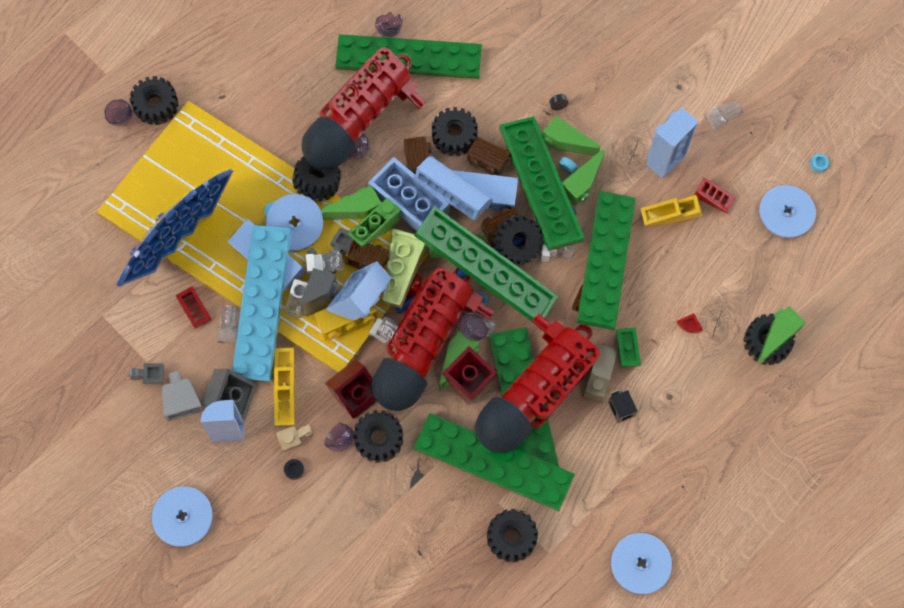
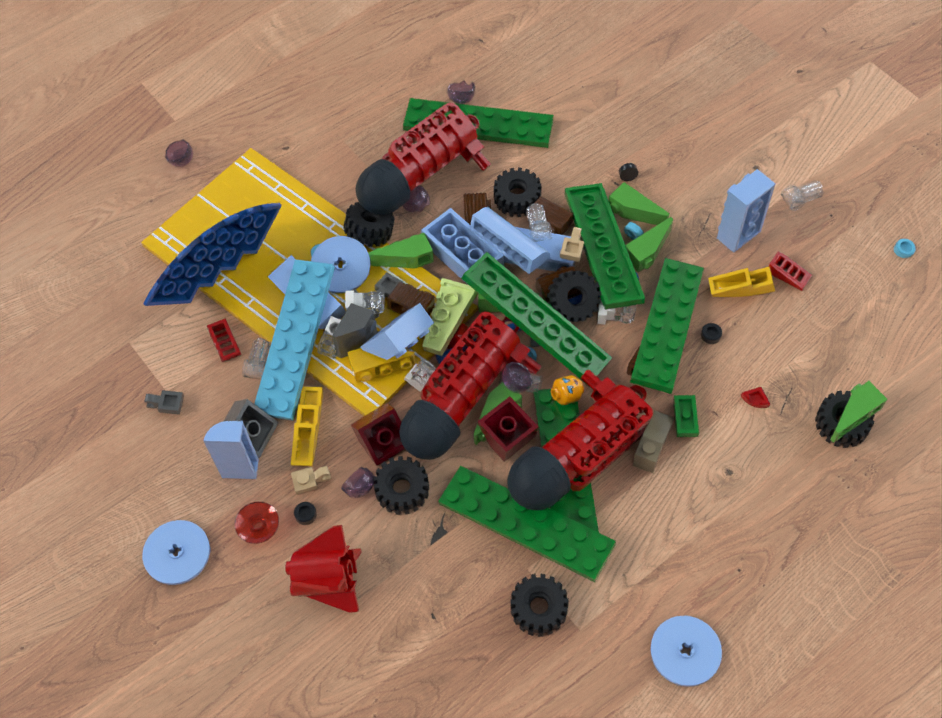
camera: 10 degrees right, 10 degrees down
(148, 90) = (214, 135): black tyre -> none
(179, 398) = (191, 427): light grey torso -> none
(252, 473) = (251, 515): none -> clear red dish
(322, 524) = (325, 570): none -> red brick
(376, 223) = (426, 269): bright green slope -> none
(479, 171) = (539, 227): none -> clear piece
(513, 190) = (572, 247): none -> tan plate
(520, 334) = (567, 390): none -> light orange head
(622, 406) = (675, 476): black brick -> none
(646, 263) = (711, 333): none -> black tile
(789, 198) = (882, 286): light blue piece -> none

